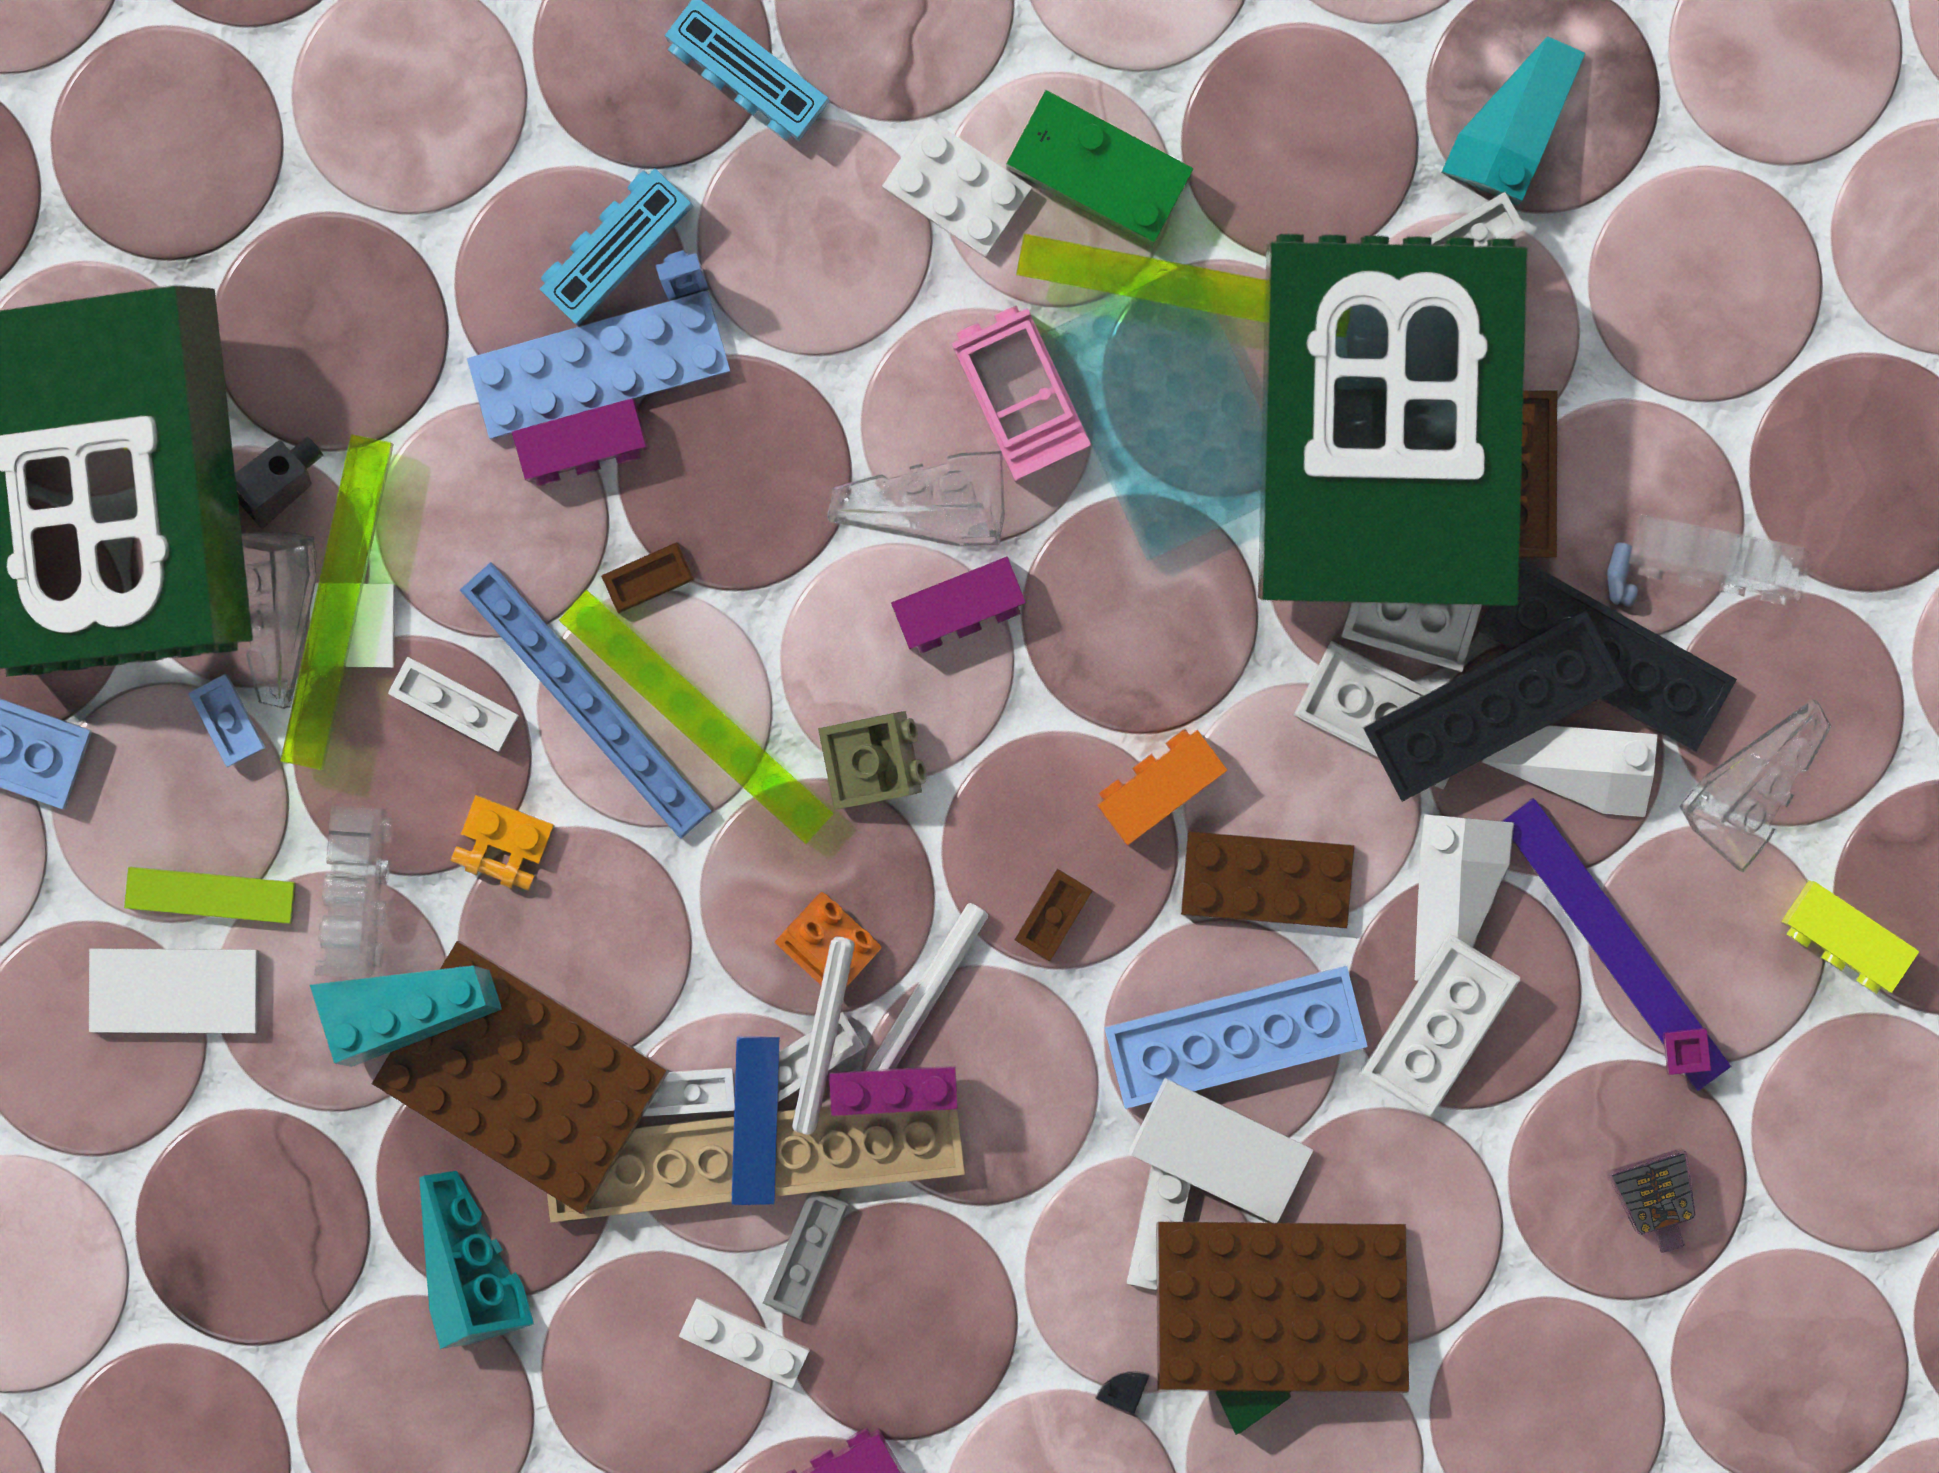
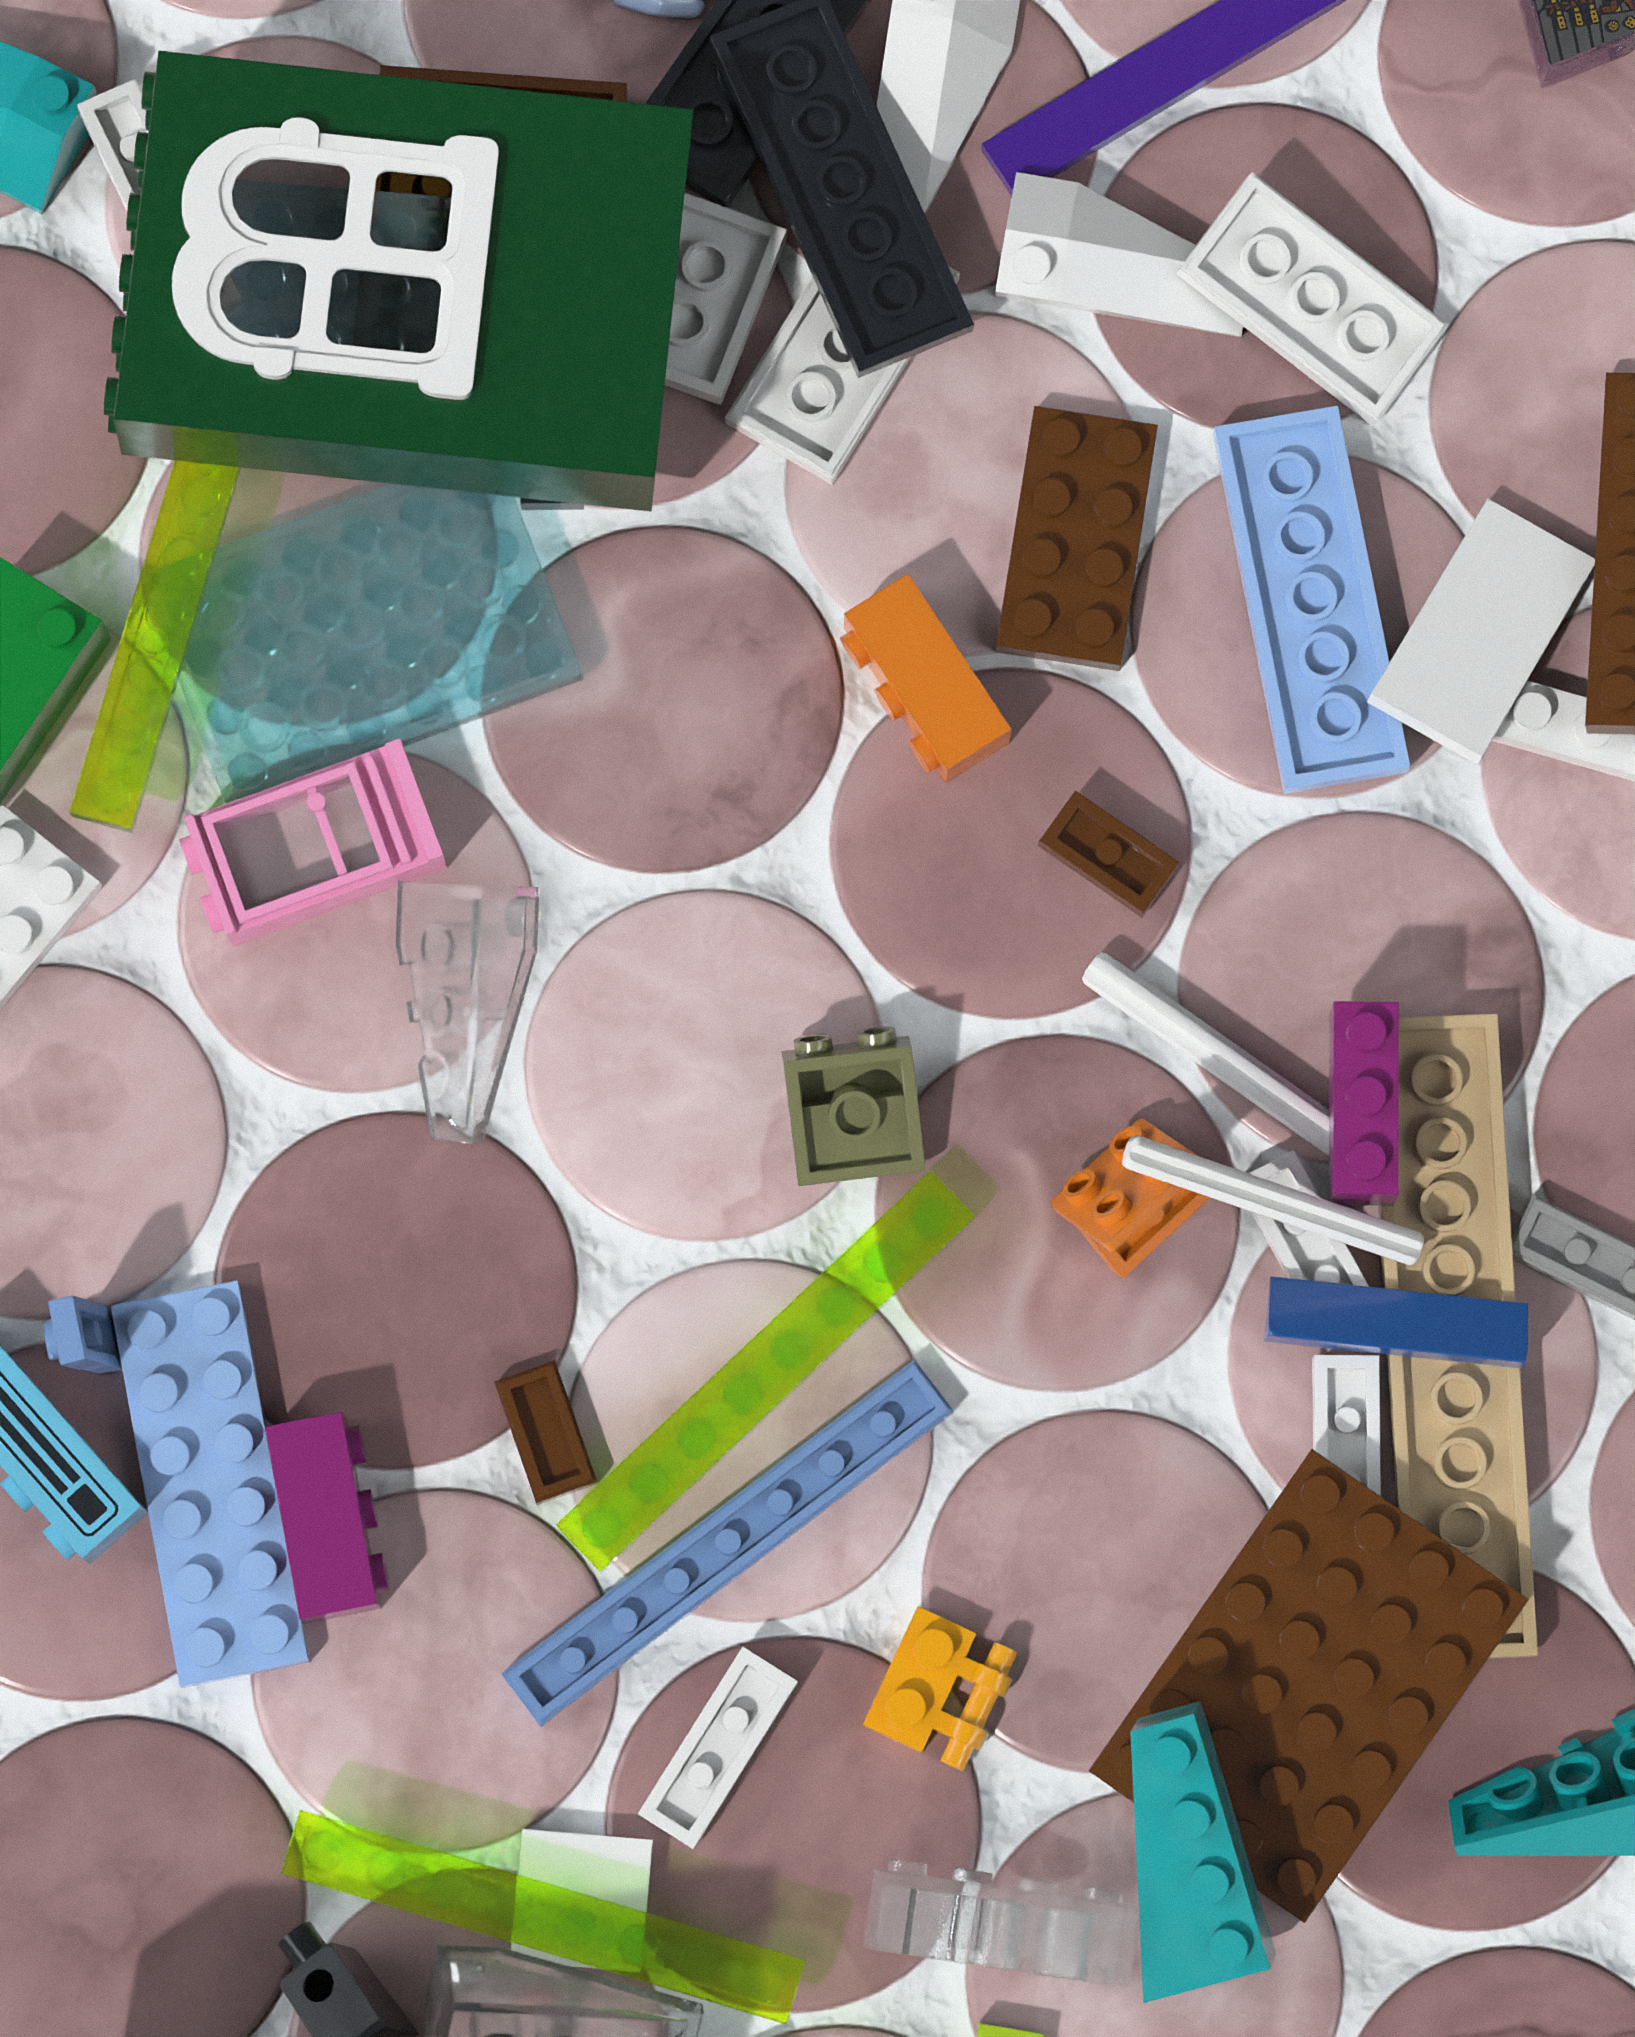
camera: 85 degrees left, 10 degrees down
(959, 605) = (627, 958): magenta brick -> none

